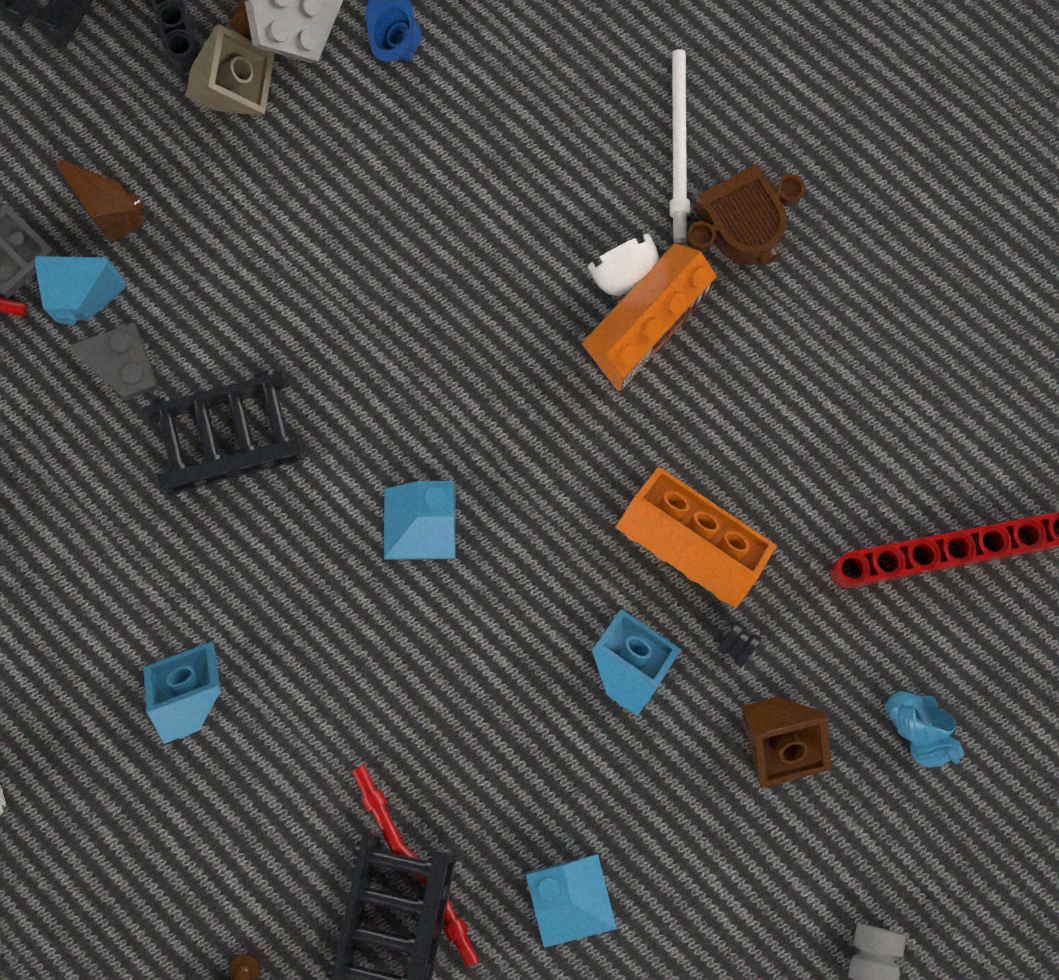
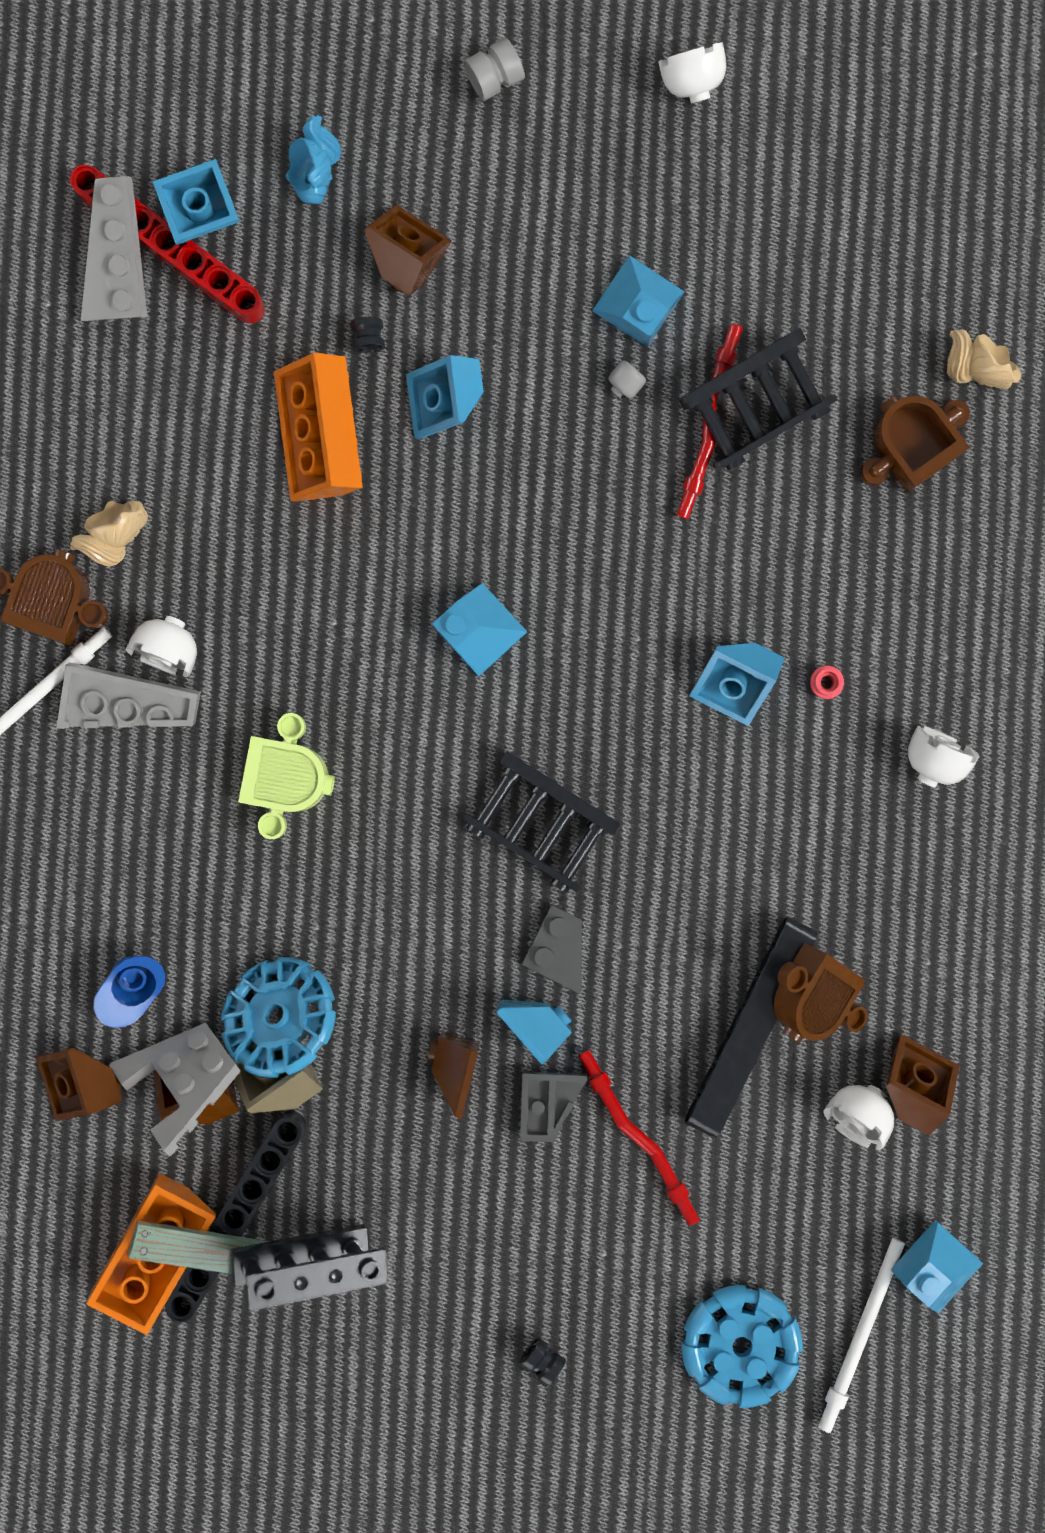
camera: 130 degrees left, 10 degrees up
(103, 763) = (836, 678): none -> coral plate
(250, 116) = (293, 1026): none -> dark azure plate
(444, 270) = (283, 776): none -> yellowish green piece
(512, 827) = (626, 380): none -> light grey piece
(625, 197) = (109, 698): none -> light grey wing
(650, 313) = (185, 595): orange slope -> none
(756, 307) = (110, 532): none -> tan hair
(967, 598) = (196, 201): none -> dark azure slope
(978, 494) = (113, 257): none -> light grey wing

